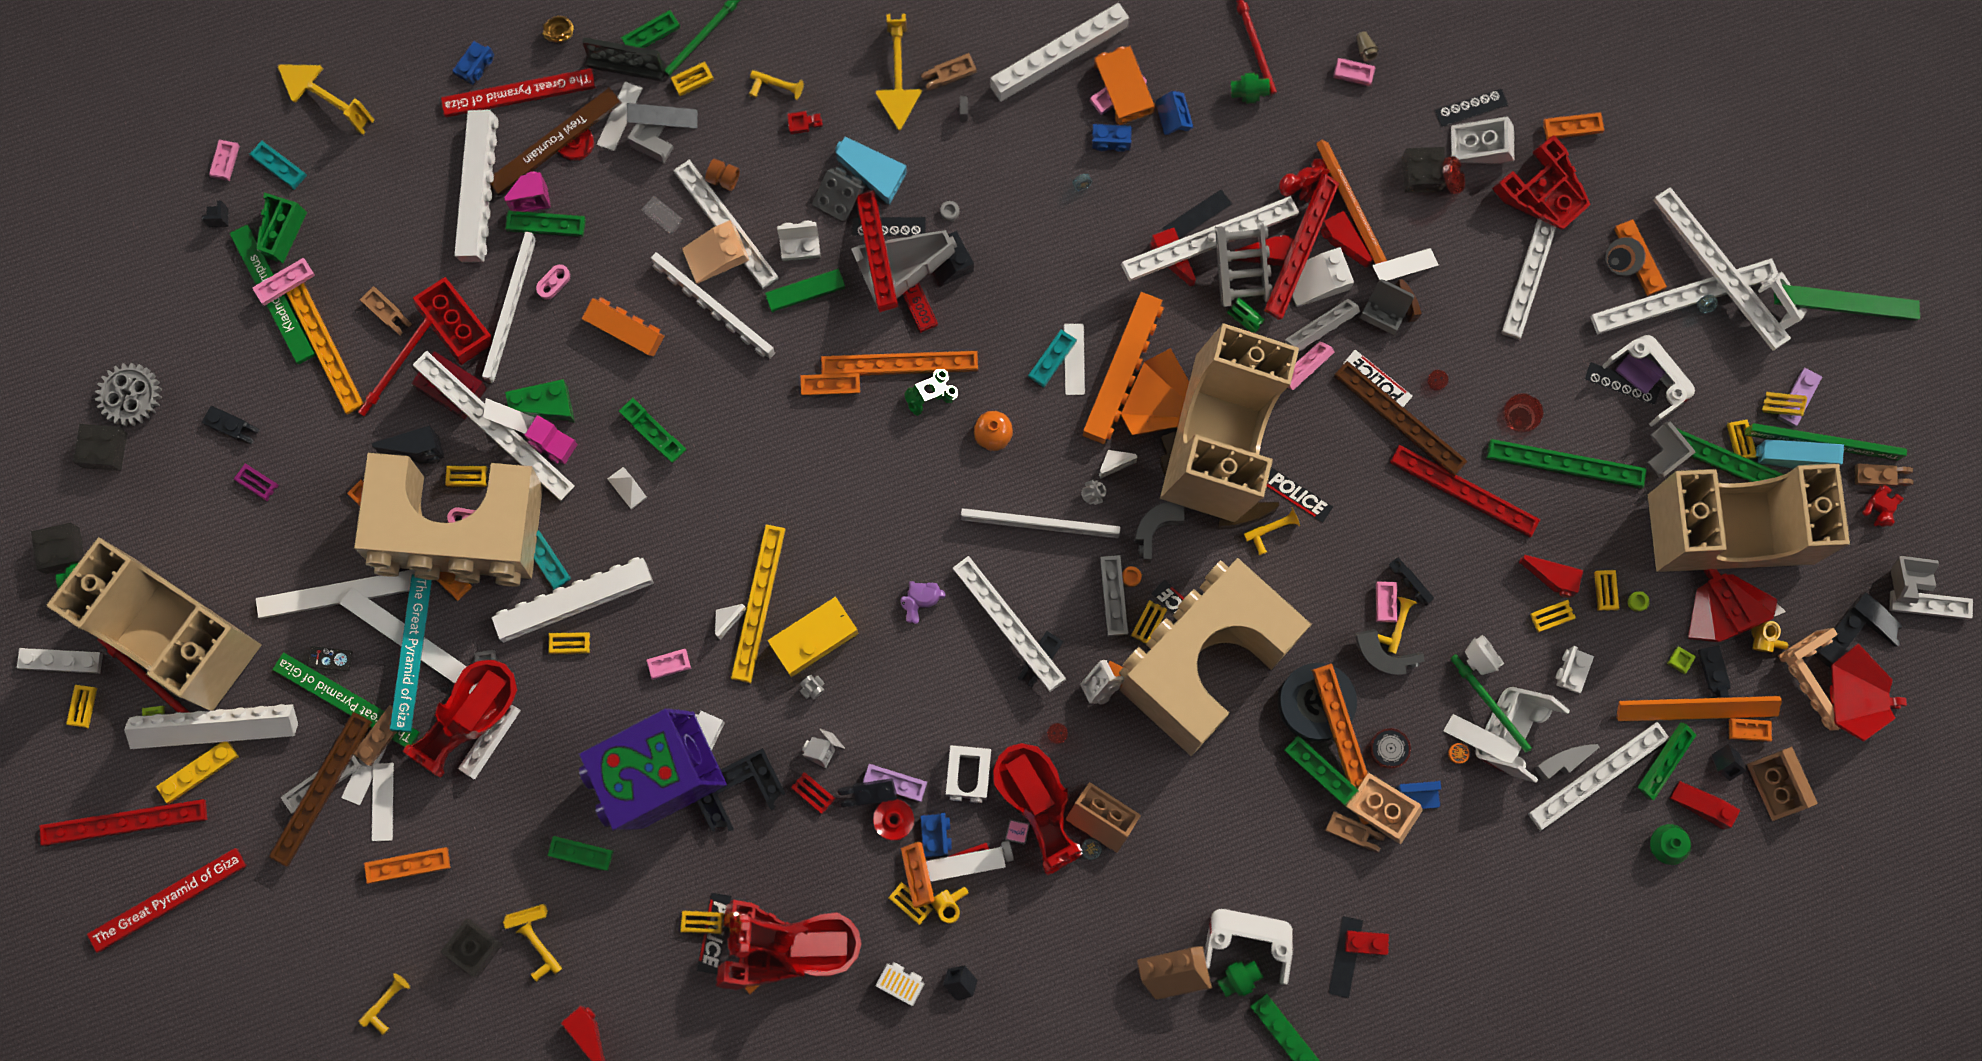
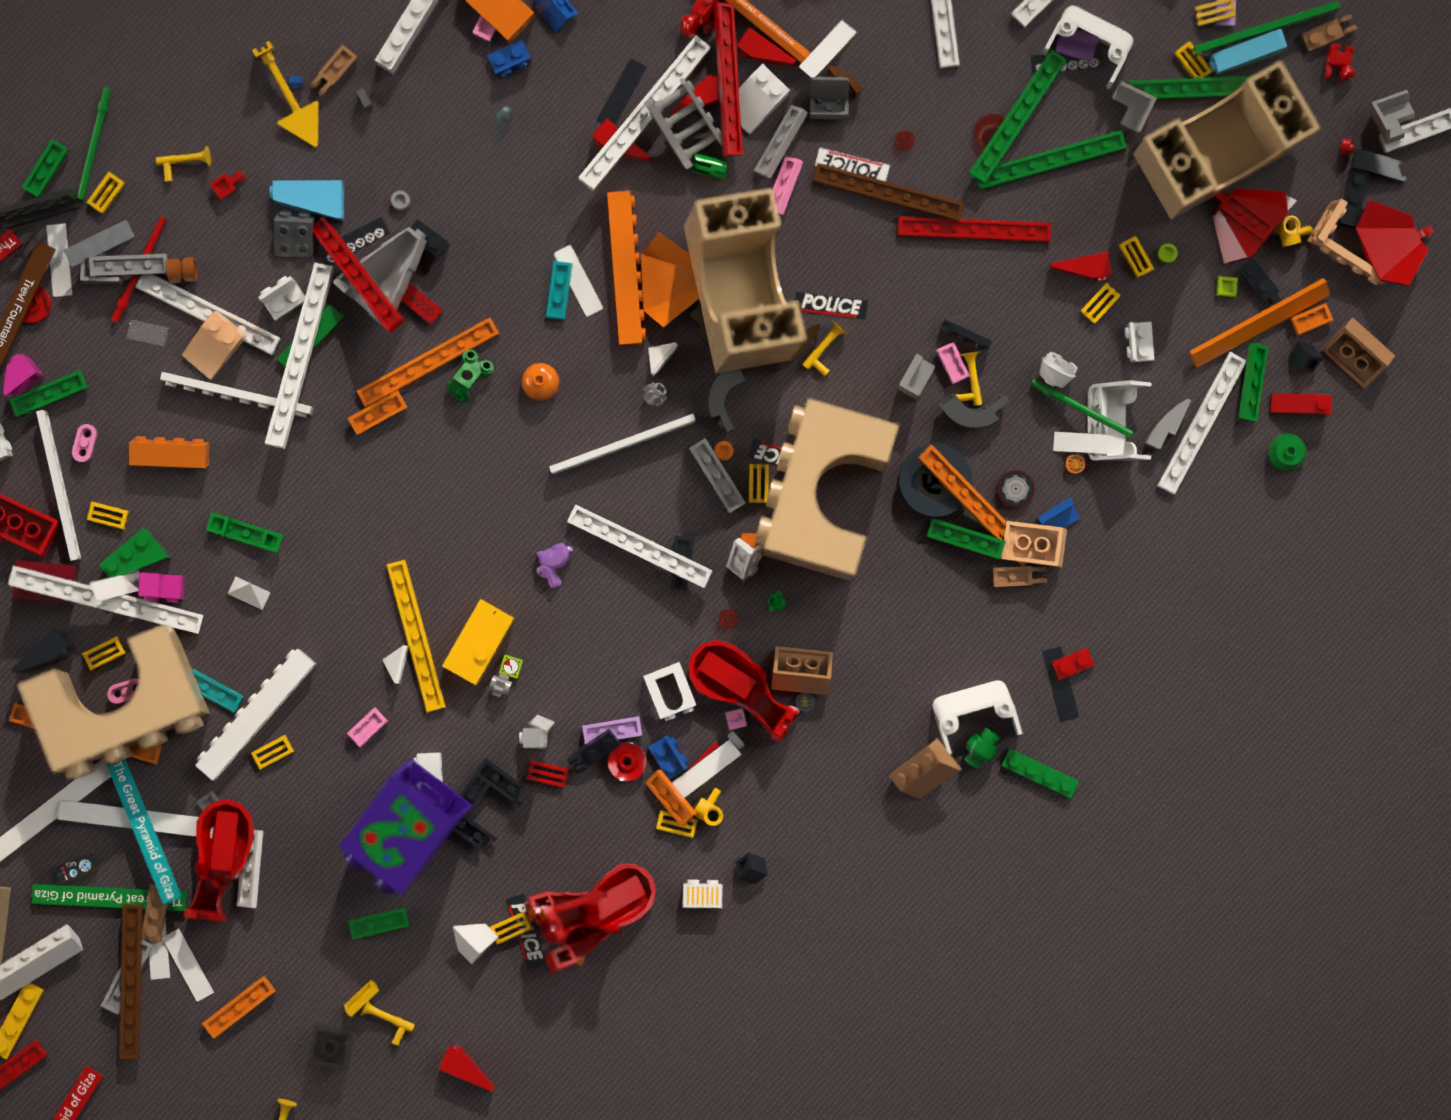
camera: 25 degrees left, 10 degrees up
(550, 366) = (123, 519): none -> yellow tile
(655, 178) = (122, 303): none -> red bar
(660, 915) = (473, 940): none -> white slope
(676, 145) = (128, 265): none -> light grey plate
(786, 299) = (299, 356): none -> white plate
(831, 675) = (511, 666): none -> tile
(909, 65) = (295, 82): none -> blue plate
(1111, 740) = (776, 602): none -> green plate
(1344, 597) = (916, 377): none -> light grey panel
(1553, 409) = (1017, 117): none -> green tile
(1855, 586) = (1346, 147): none -> red plate

